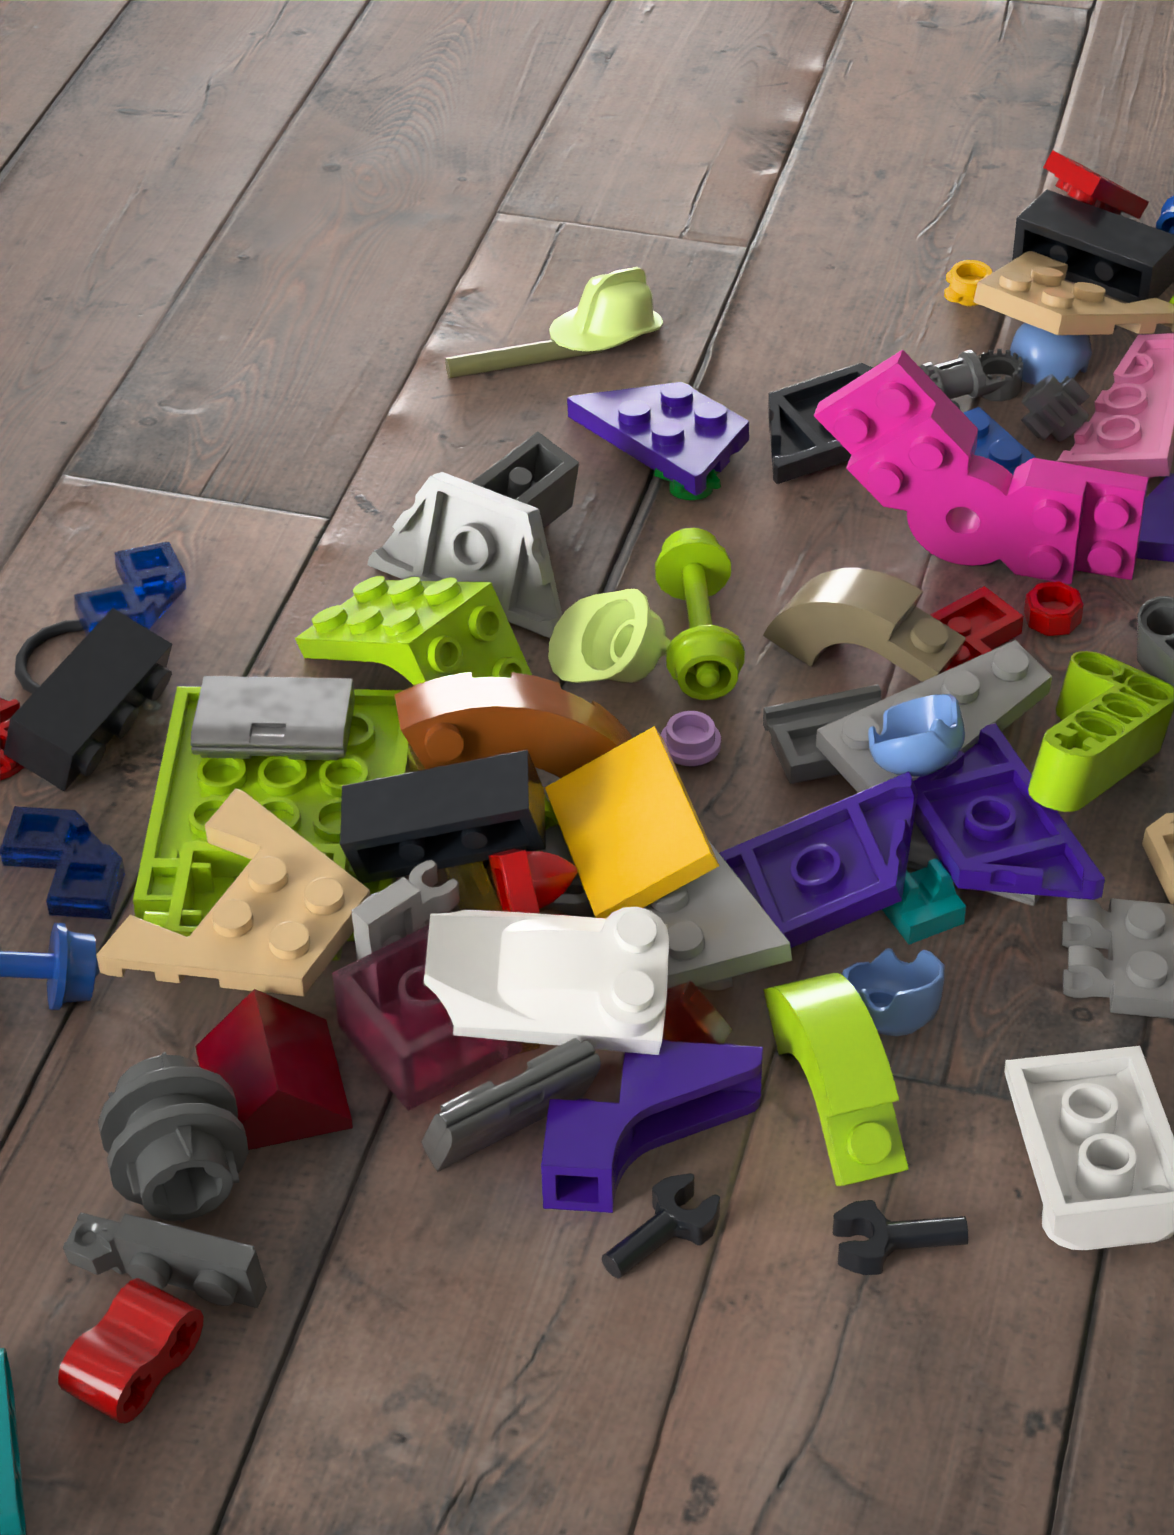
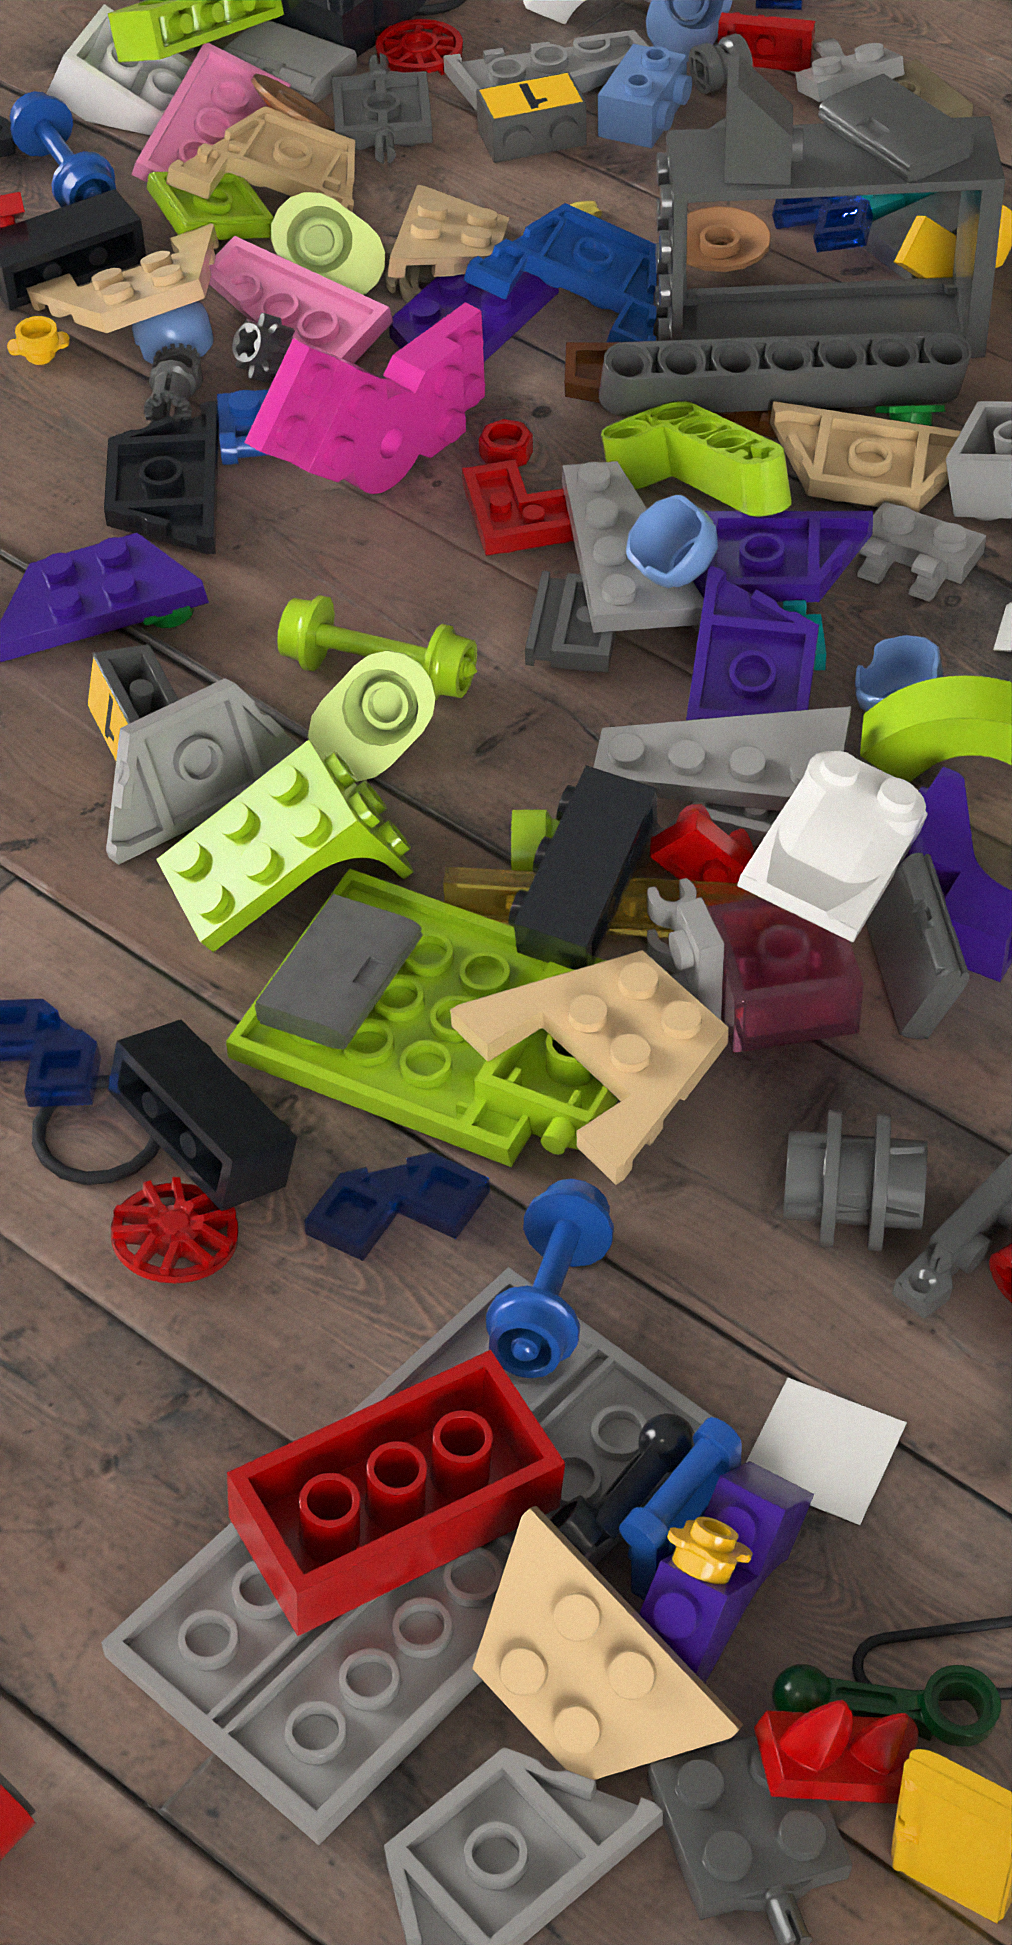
camera: 65 degrees left, 5 degrees up
(278, 1069) = (758, 1106): dark red slope -> none
(483, 717) = (500, 782): dark orange brick -> none
(631, 826) = (677, 742): yellow tile -> none
(691, 738) = (520, 712): lavender plate -> none
(869, 612) = (463, 543): dark tan arch -> none

